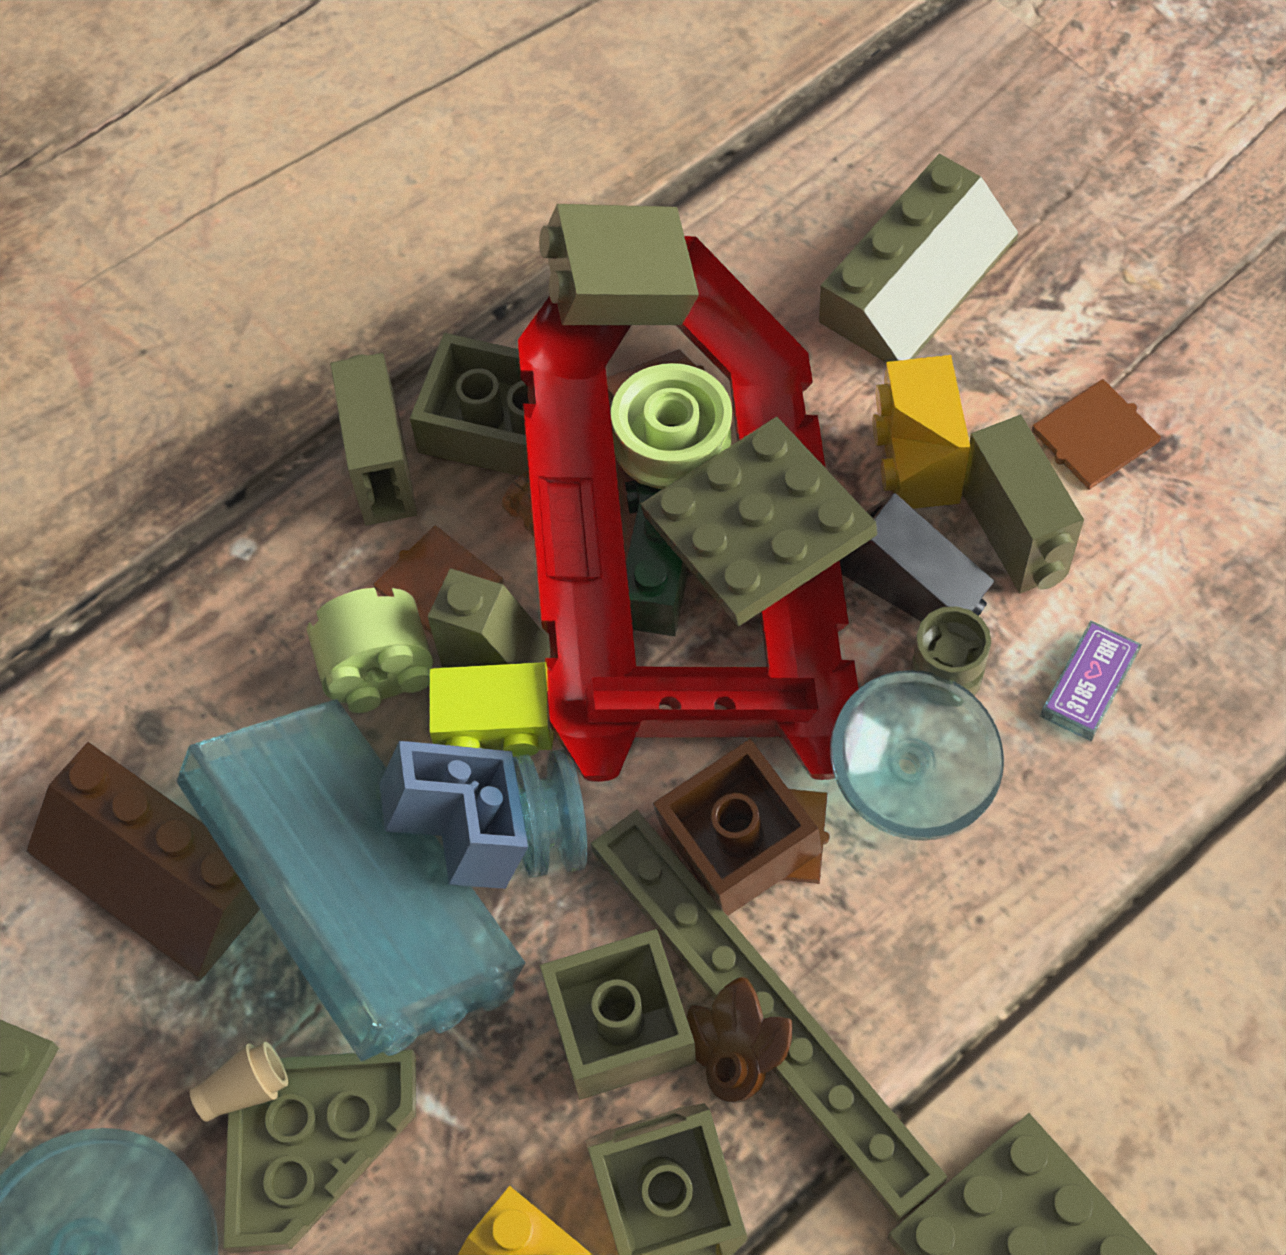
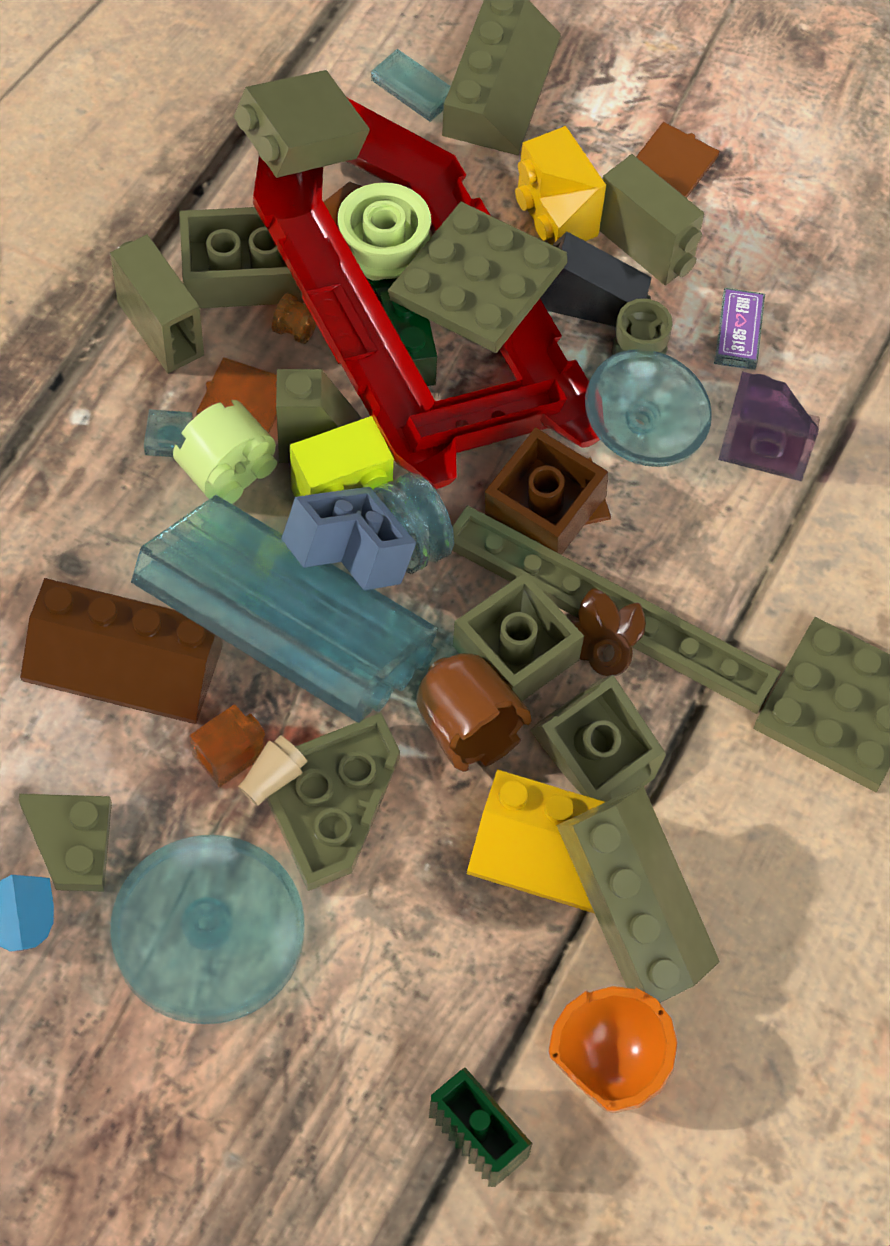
camera: 30 degrees left, 0 degrees up
(213, 1024) = (228, 744): none -> clear orange brick
(316, 590) = (165, 431): none -> clear light blue plate
(515, 1089) = (470, 710): none -> dark orange cylinder
(804, 246) = (411, 84): none -> clear light blue tile
(1062, 832) = (769, 428): none -> clear purple slope

